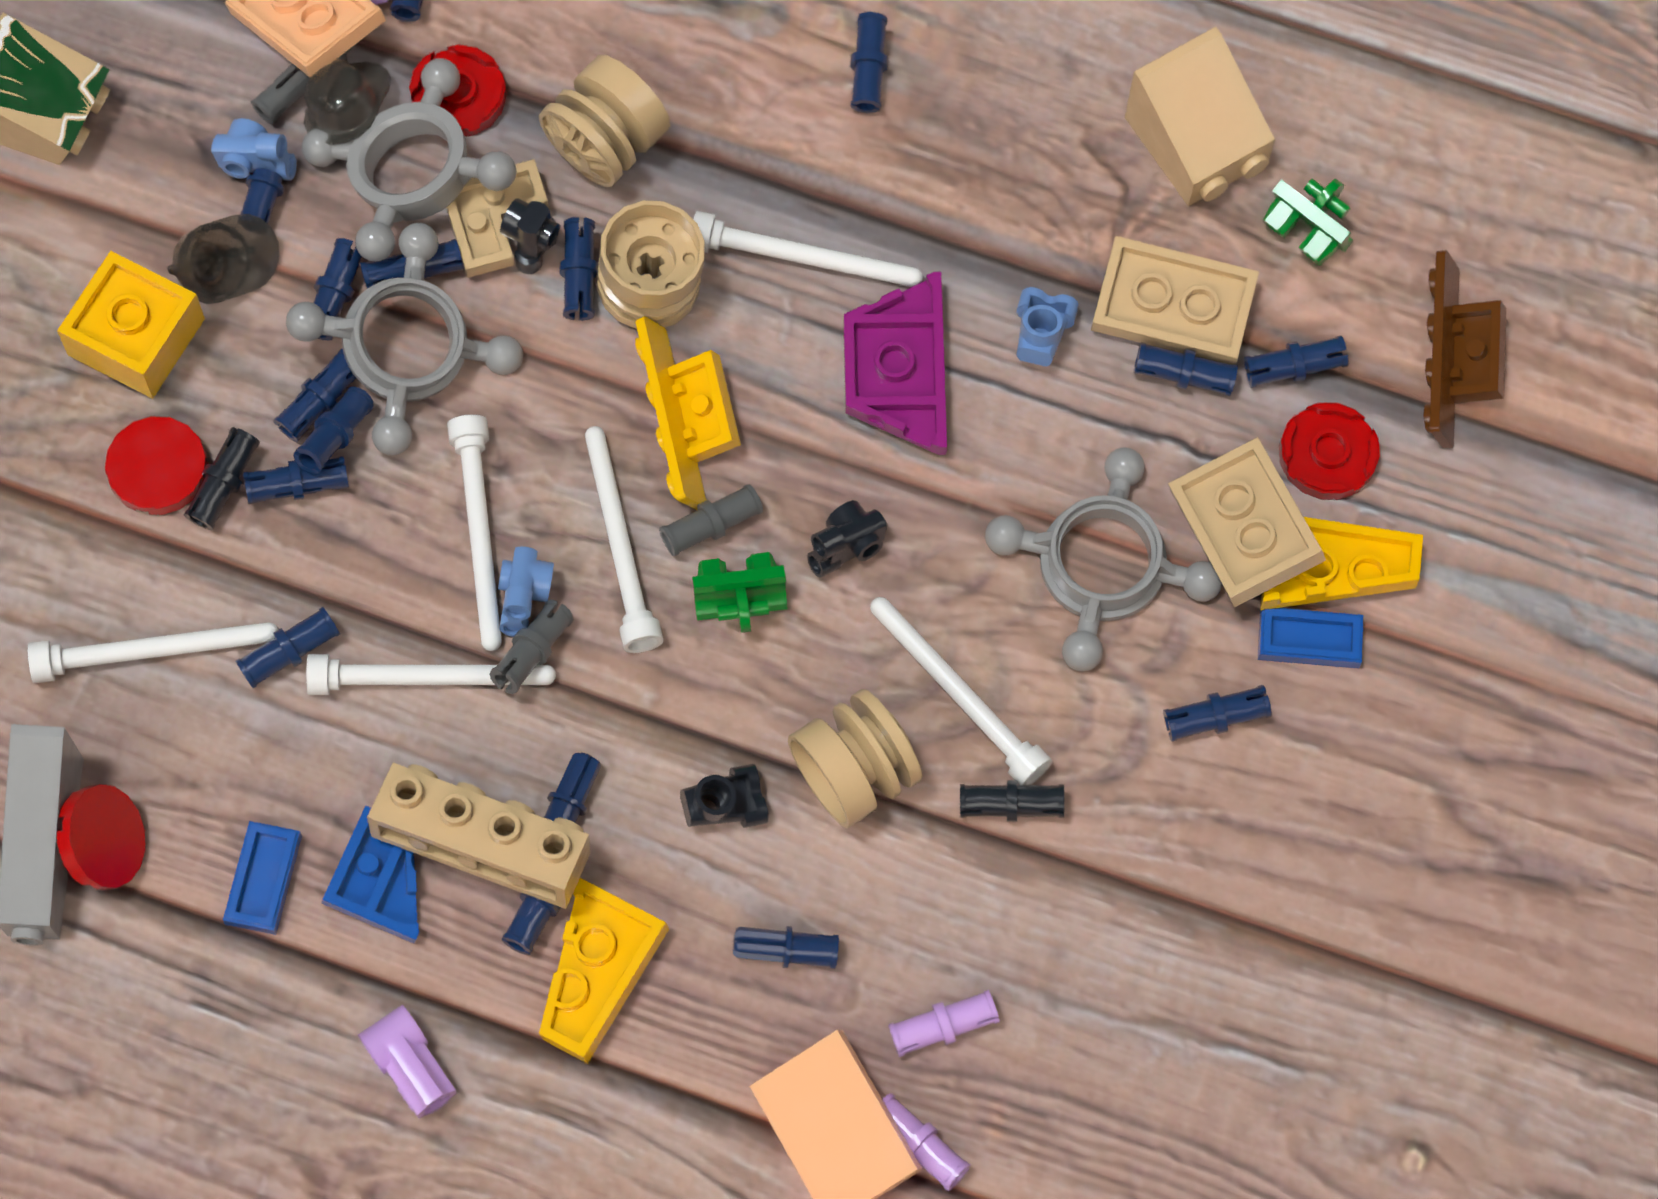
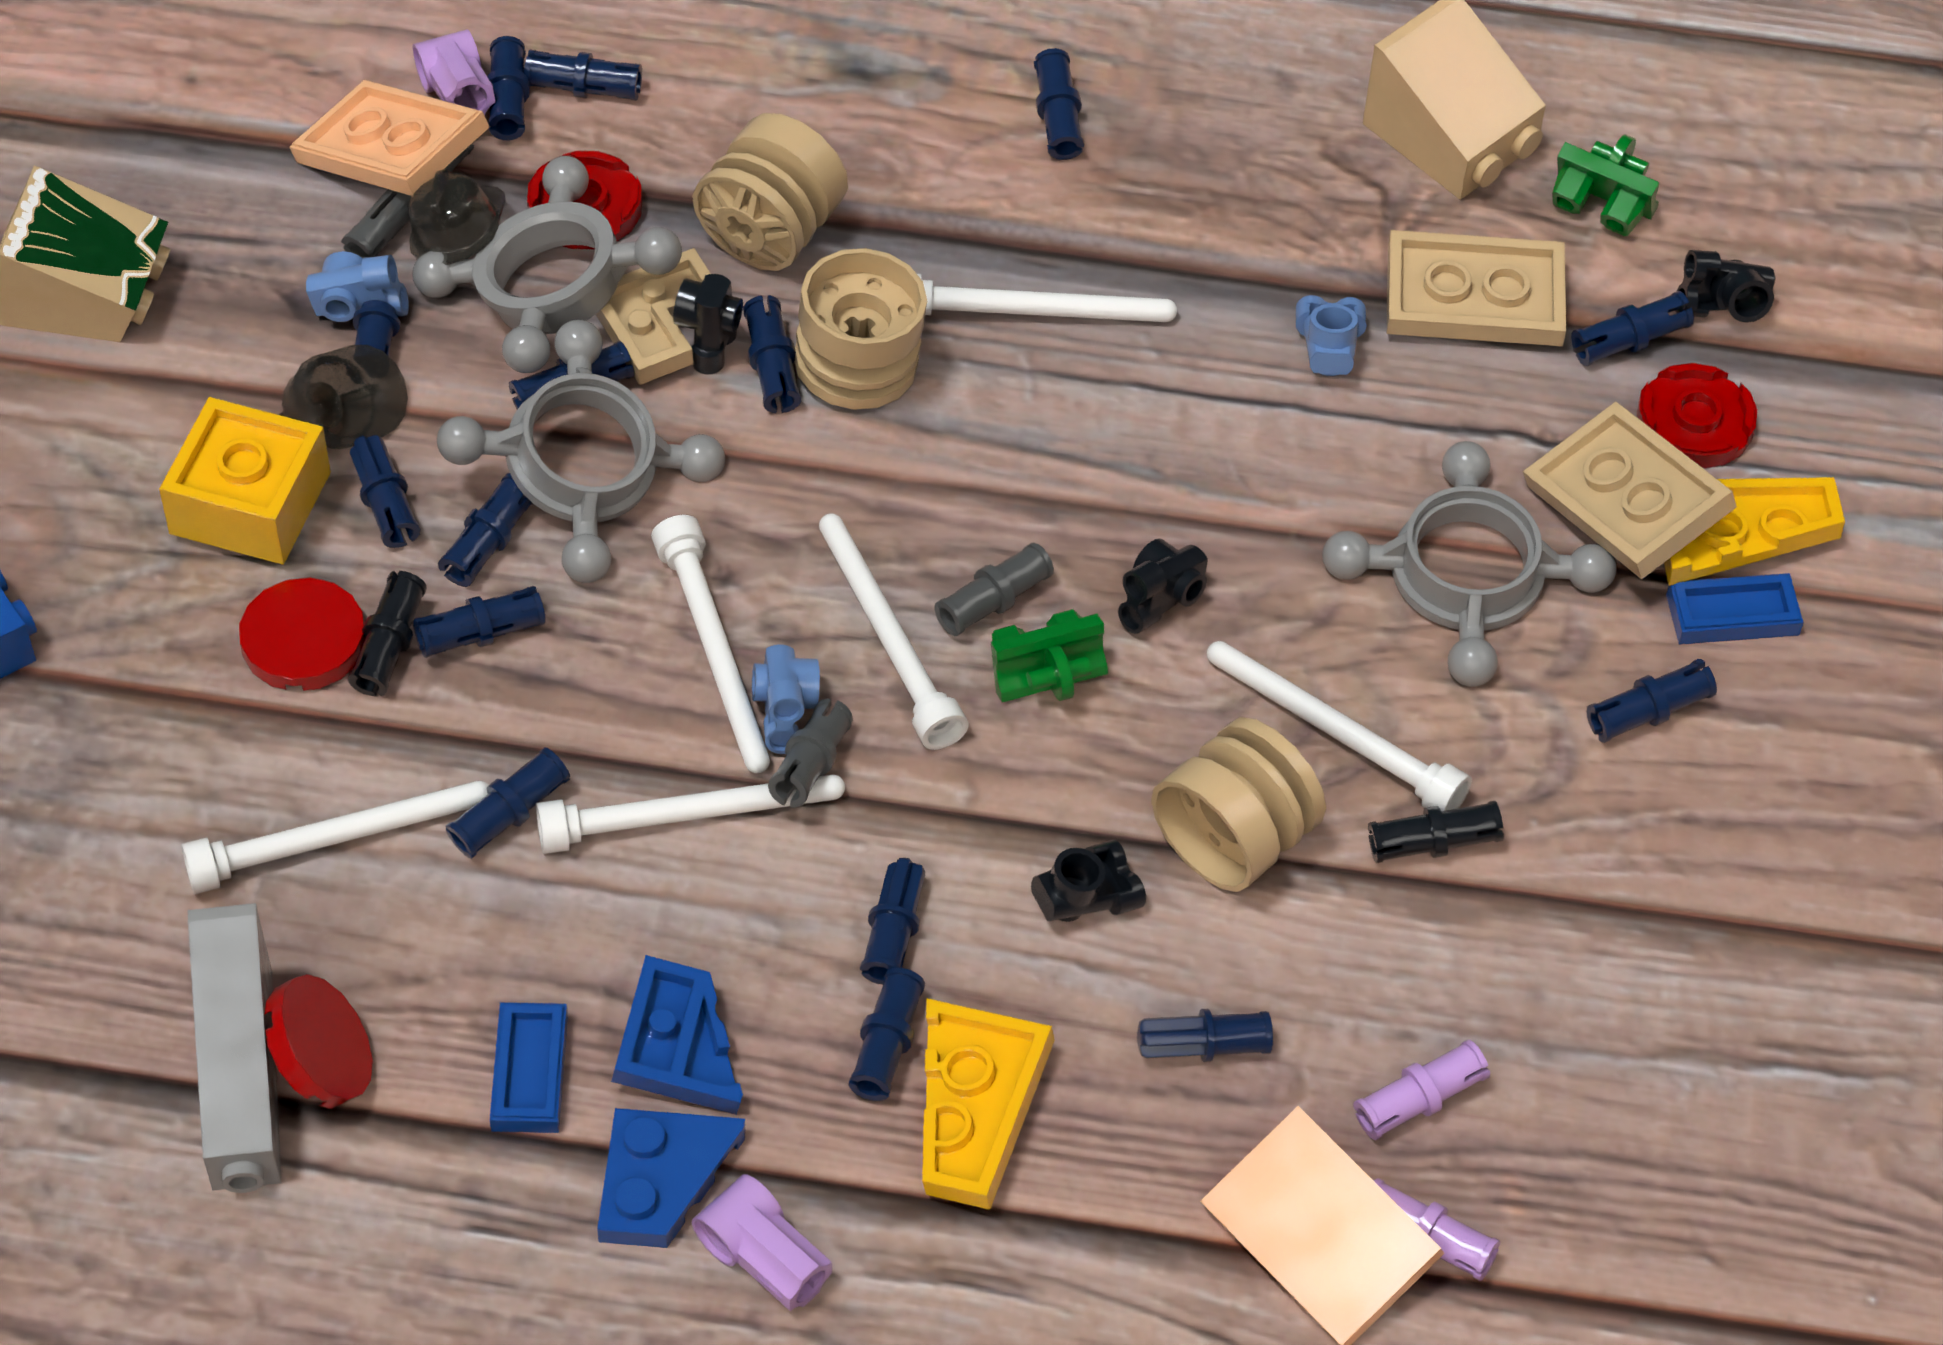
camera: 10 degrees left, 15 degrees down
(242, 346) = (384, 491): none -> dark blue axle
(333, 430) = (516, 557): dark blue pin -> none
(335, 285) = (486, 405): dark blue pin -> none
(343, 984) = (660, 1170): none -> blue wing
(479, 834) = (799, 957): tan brick -> none
(690, 409) = (945, 474): yellow bracket -> none
(898, 364) = (1175, 399): magenta wing -> none
(1185, 369) = (1508, 354): dark blue pin -> none
(1388, 334) = (1726, 285): none -> black plate
(1465, 350) = (1825, 289): reddish brown bracket -> none

